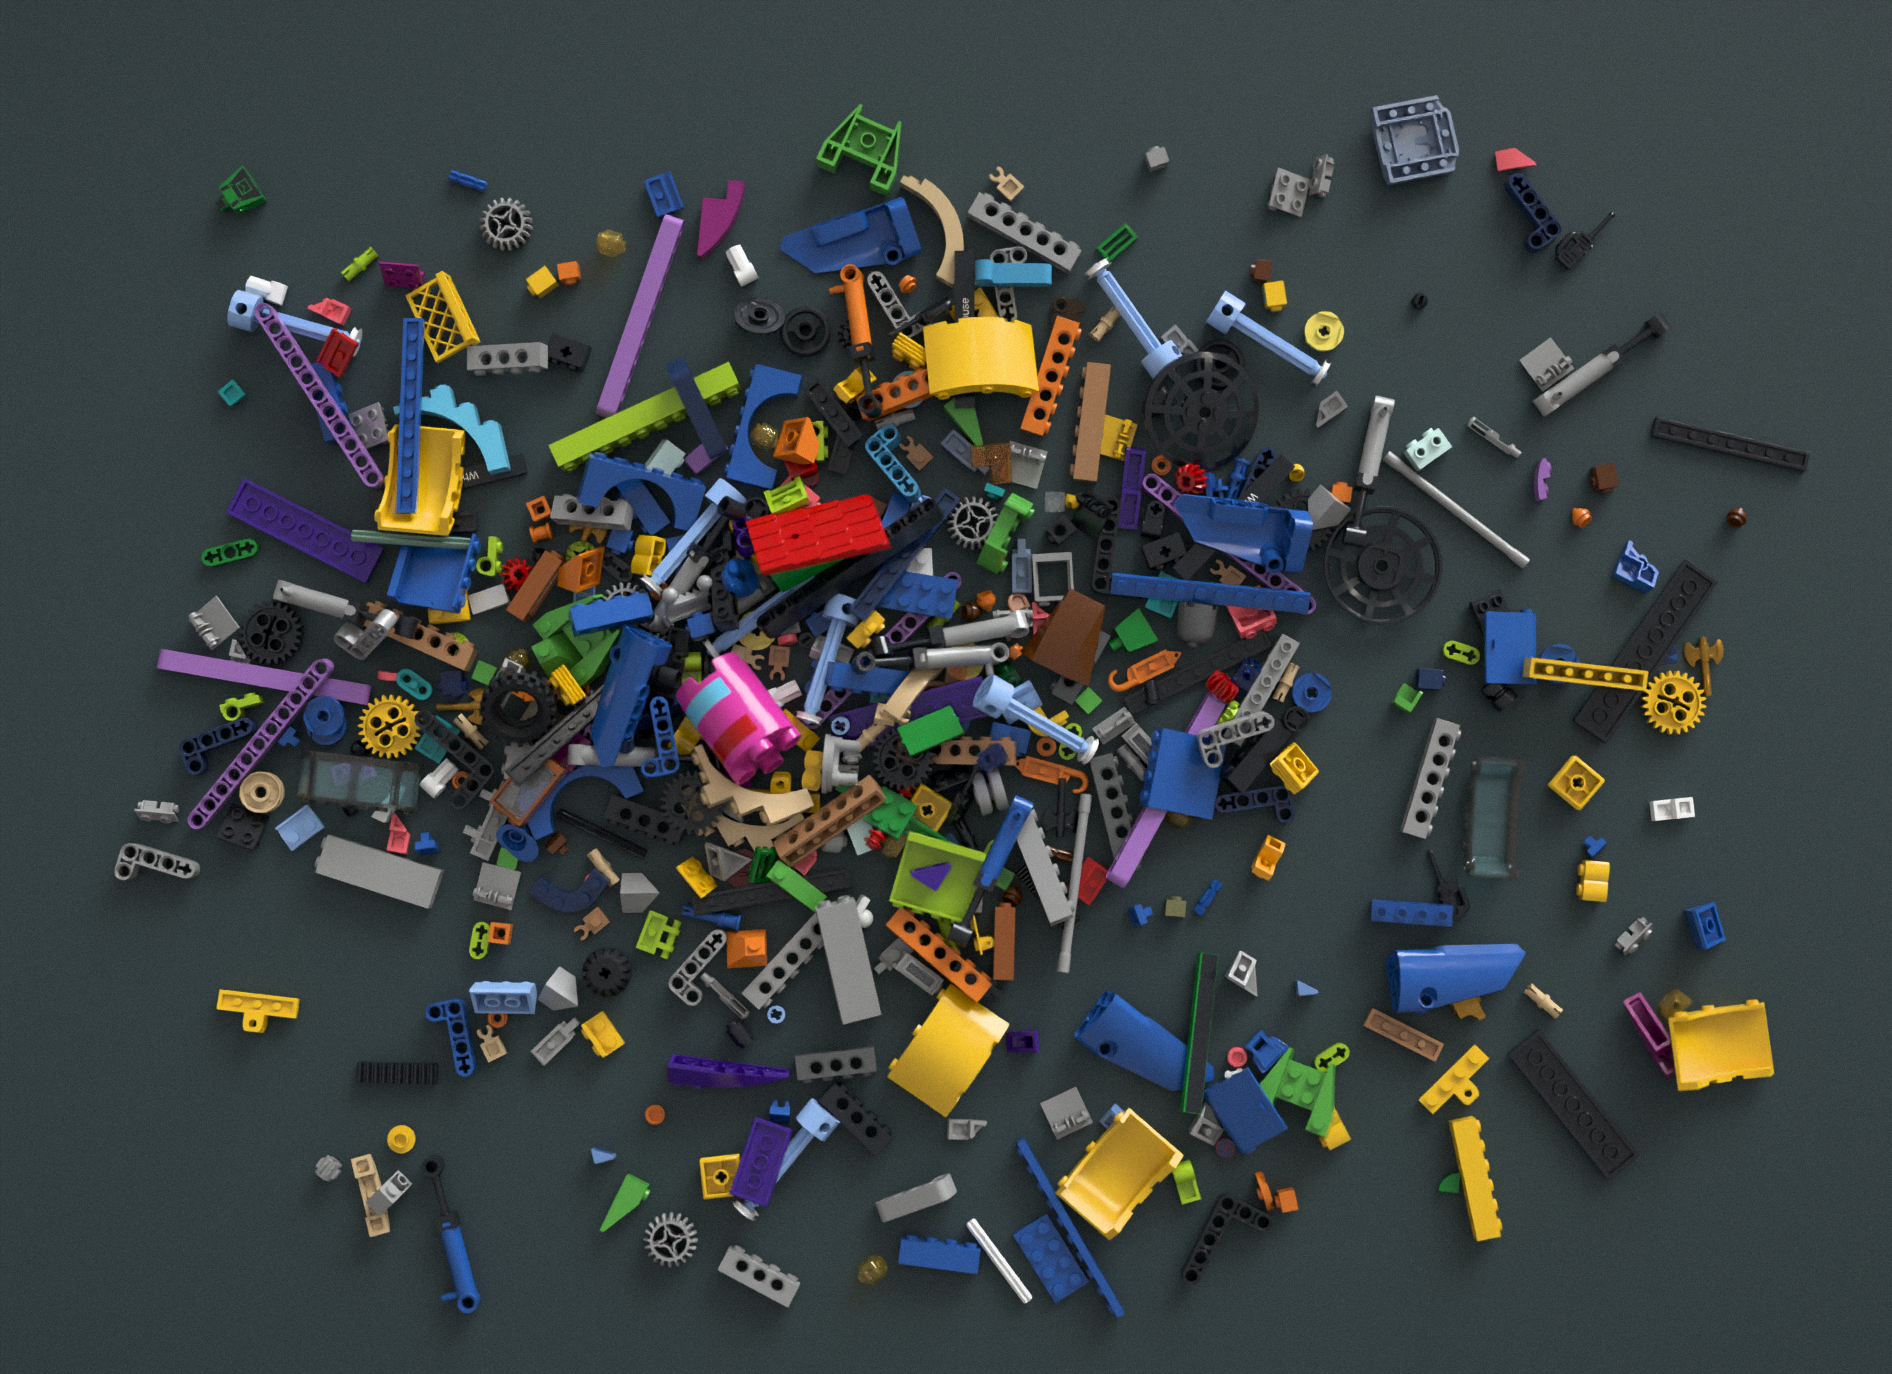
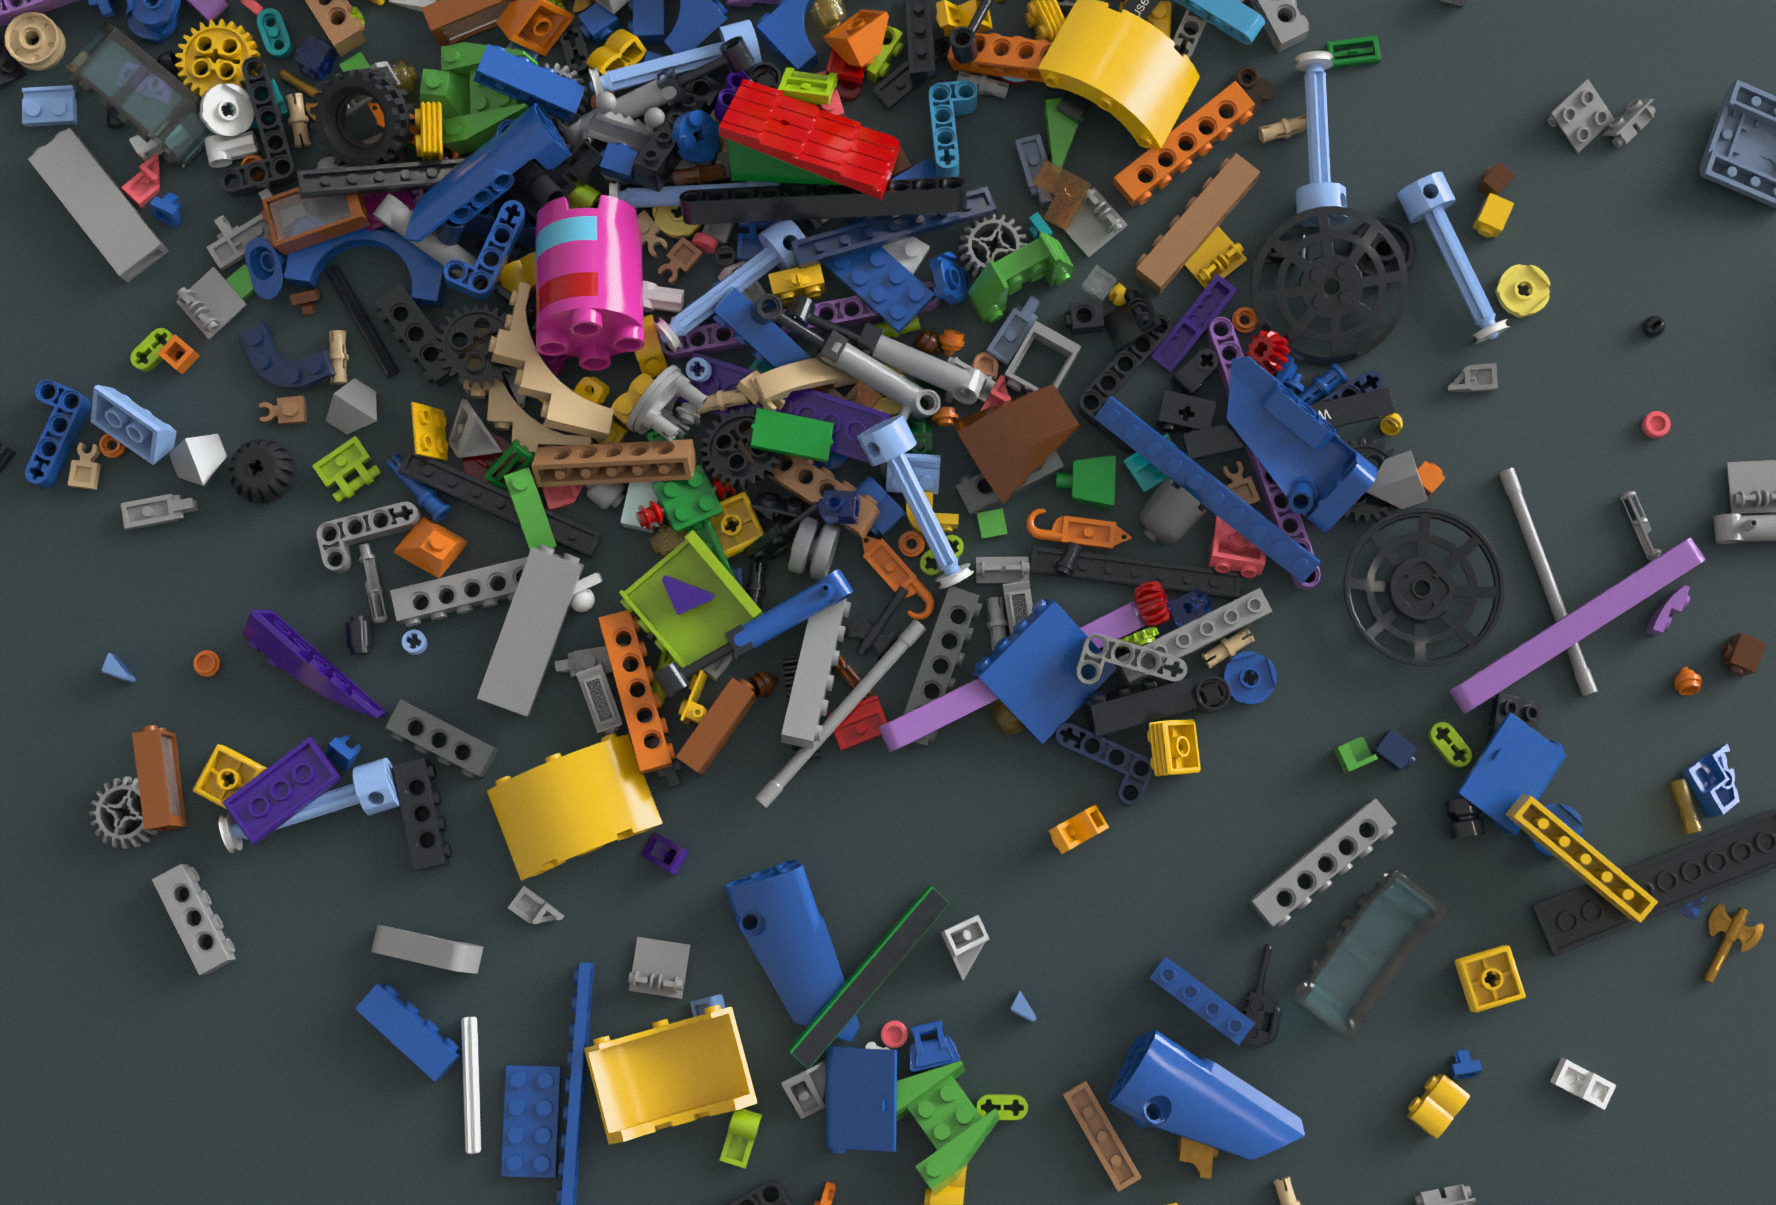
camera: 35 degrees right, 5 degrees down
(414, 751) = (220, 96): none -> white plate
(602, 1034) = (210, 538): yellow bracket -> none
(628, 1197) = (106, 736): bright green slope -> none
(679, 1205) = (159, 779): none -> dark orange window
(756, 600) = (699, 174): none -> reddish brown axle
(872, 1270) = (322, 998): clear yellow head -> none
(917, 455) = (982, 138): medium nougat plate -> none
(959, 562) = (950, 281): none -> blue plate
(1004, 878) = (766, 656): bright green tile -> none
(1139, 914) = (889, 797): blue tile -> none
(1175, 907) = (936, 816): olive plate -> none
(1179, 339) = (1354, 195): light grey slope -> none
(1207, 897) = (980, 830): blue axle -> none
(1225, 1147) = (812, 1128): tile -> none
(1369, 466) = (1479, 467): light grey piece -> none
(1427, 449) = (1558, 492): light aqua brick -> none
(1460, 364) = (1655, 424): none -> coral tile
(1492, 527) = (1577, 625): none -> medium lavender beam
(1630, 598) = (1685, 803): none -> clear yellow piece
(1679, 686) = (1680, 946): yellow gear -> none

